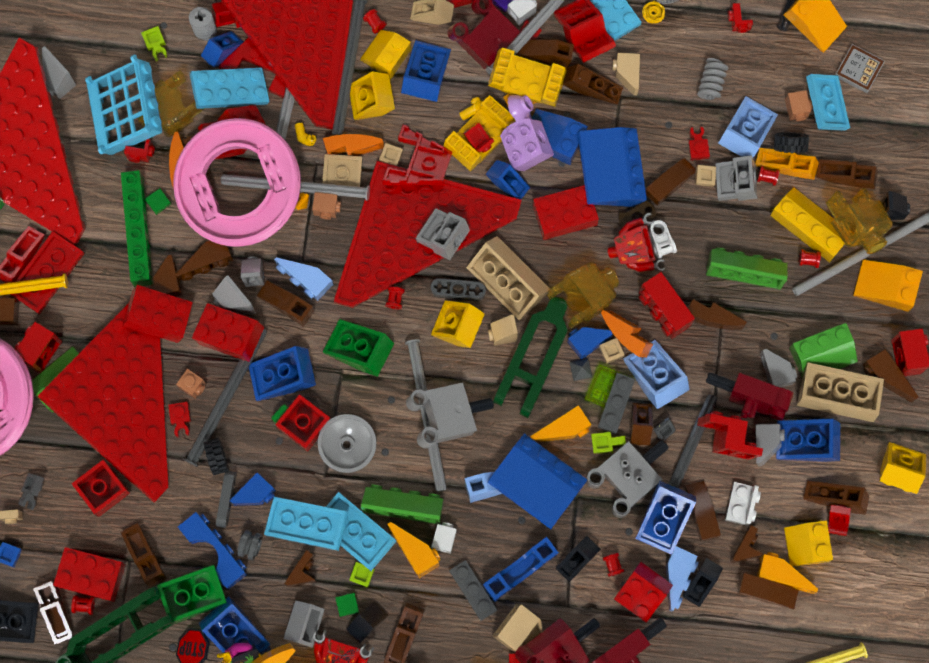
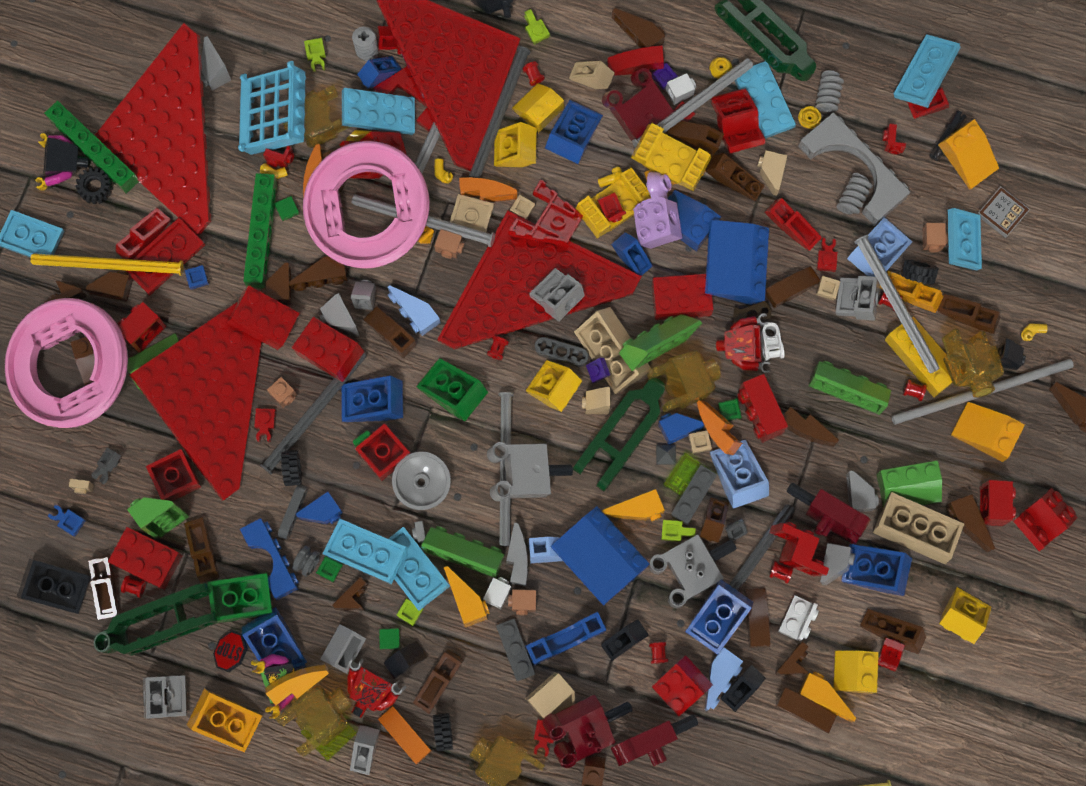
camera: 10 degrees right, 0 degrees up
(82, 287) = (196, 277): none -> blue plate
(93, 530) = (156, 515): none -> bright green slope
(129, 166) = (279, 173): none -> yellow arm
(213, 115) = (357, 135): none -> yellow arm
(274, 548) = (329, 569): none -> green tile
(354, 494) = (419, 532): none -> light grey plate
(457, 498) = (518, 557): none -> light grey slope
(470, 541) = (522, 601): none -> nougat brick
(497, 300) = (598, 370): none -> dark purple plate
(551, 259) = (658, 340): none -> bright green slope
(634, 313) = (730, 409): none -> green tile
(658, 119) = (793, 224): none -> red slope
(682, 26) = (836, 136): none -> light grey arch
(716, 465) = (777, 569): none -> red bush
(778, 180) = (897, 304): none -> light grey axle
(910, 177) = (1031, 329): none -> yellow arm

